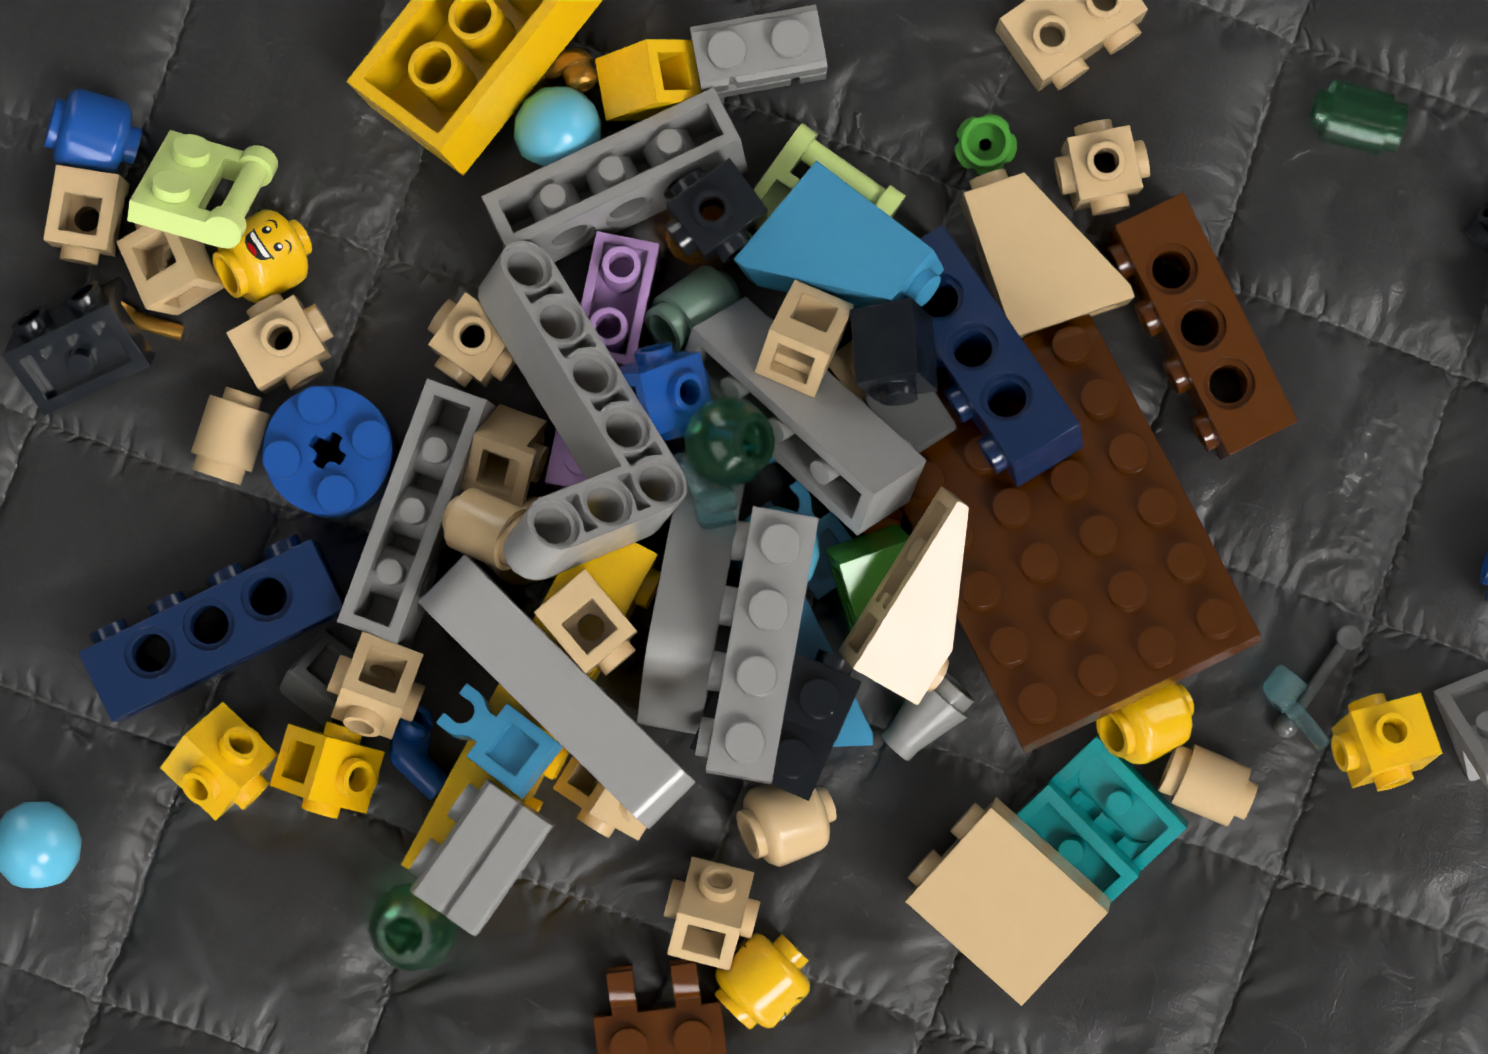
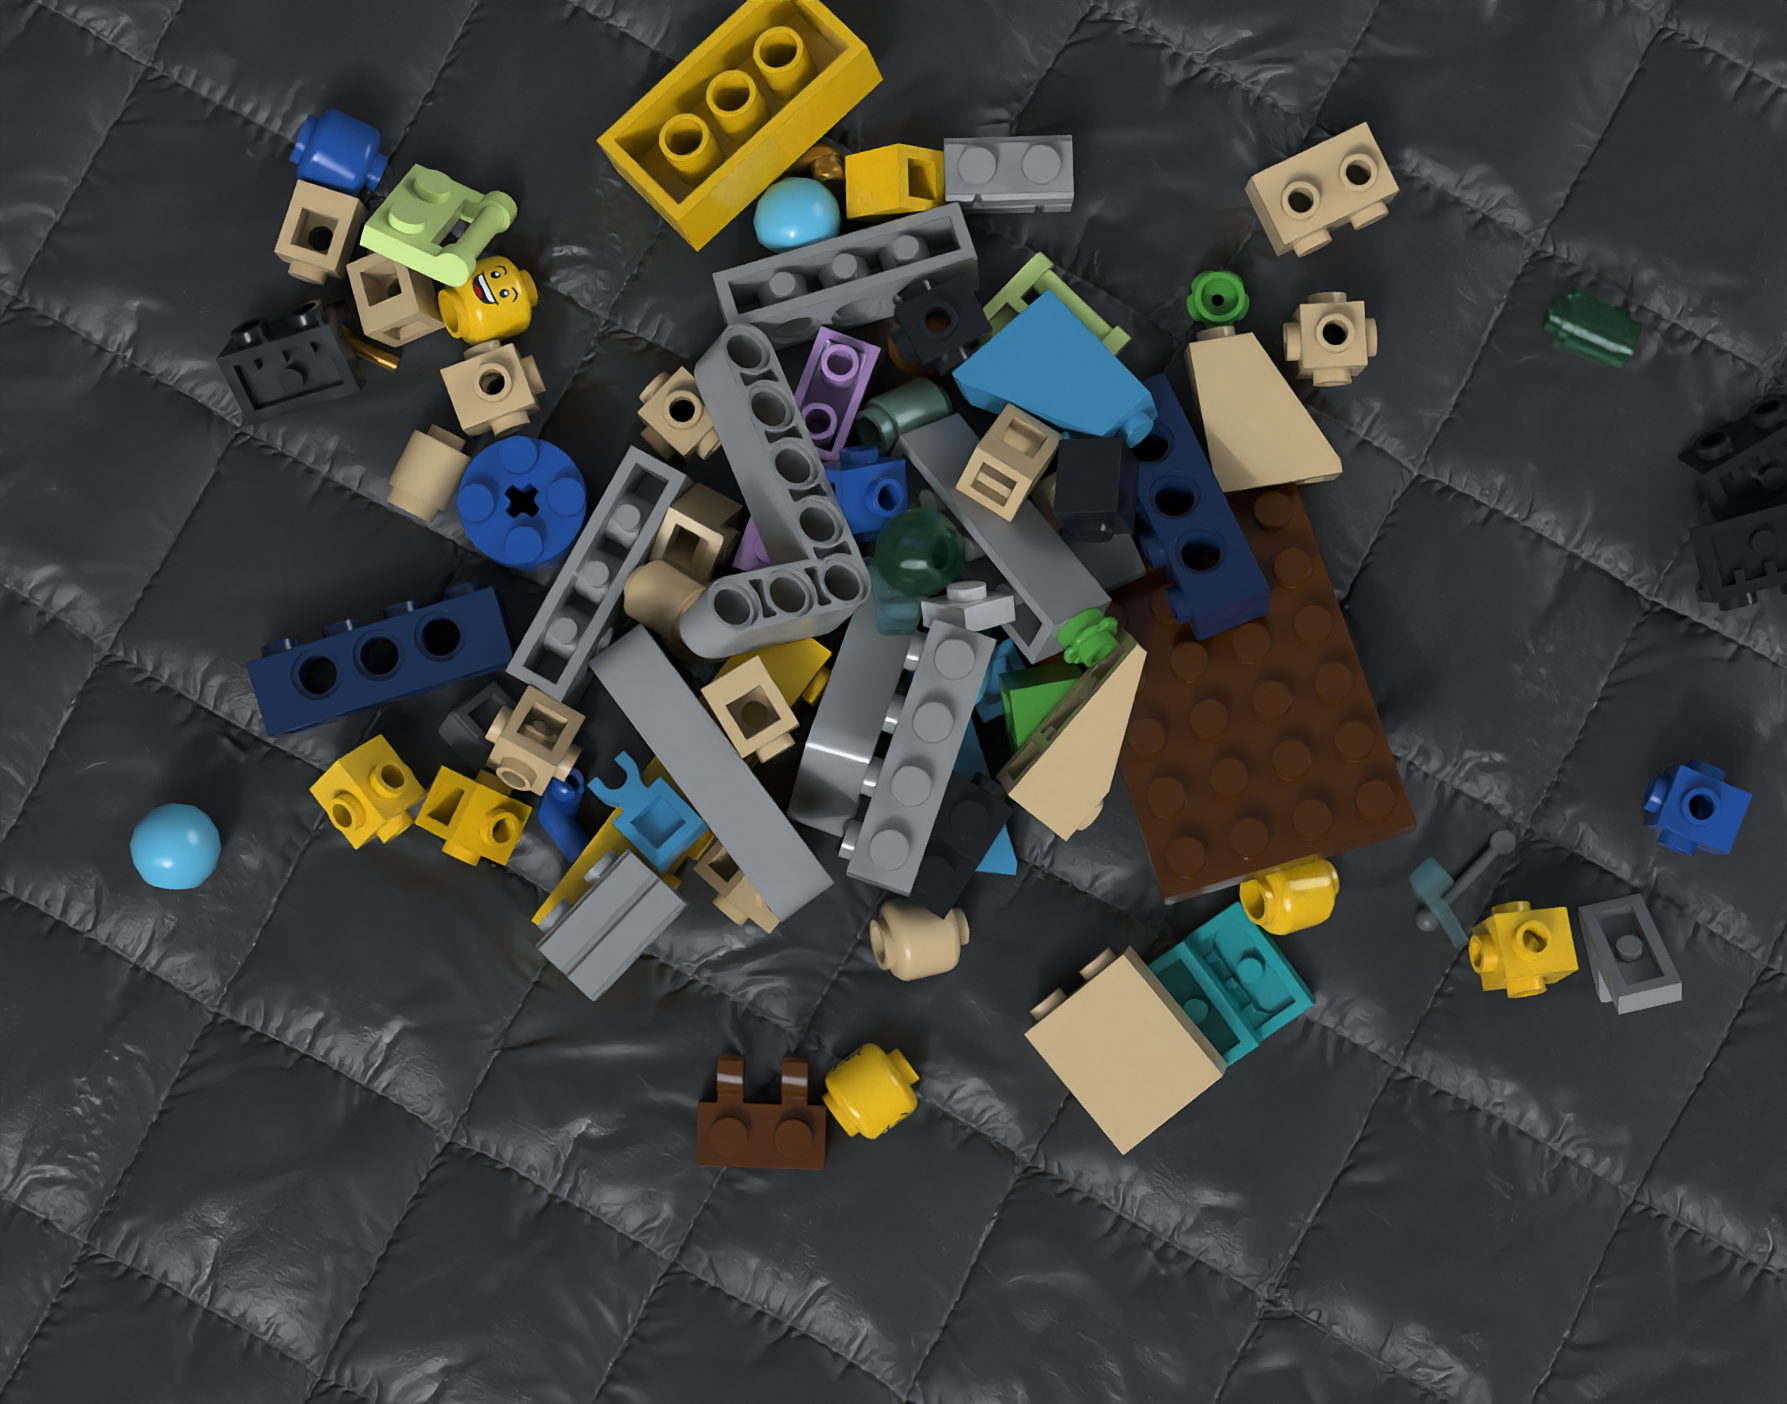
camera: 10 degrees right, 0 degrees up
(410, 931) = (530, 987): clear green piece -> none
(713, 900) = (831, 1002): tan brick -> none
(786, 488) = (969, 607): none -> white plate
(909, 500) = (1088, 637): none -> bright green plate
(934, 716) = (1073, 859): light grey cone -> none
(1175, 233) = (1392, 415): reddish brown brick -> none
(1208, 784) = (1341, 965): tan brick -> none

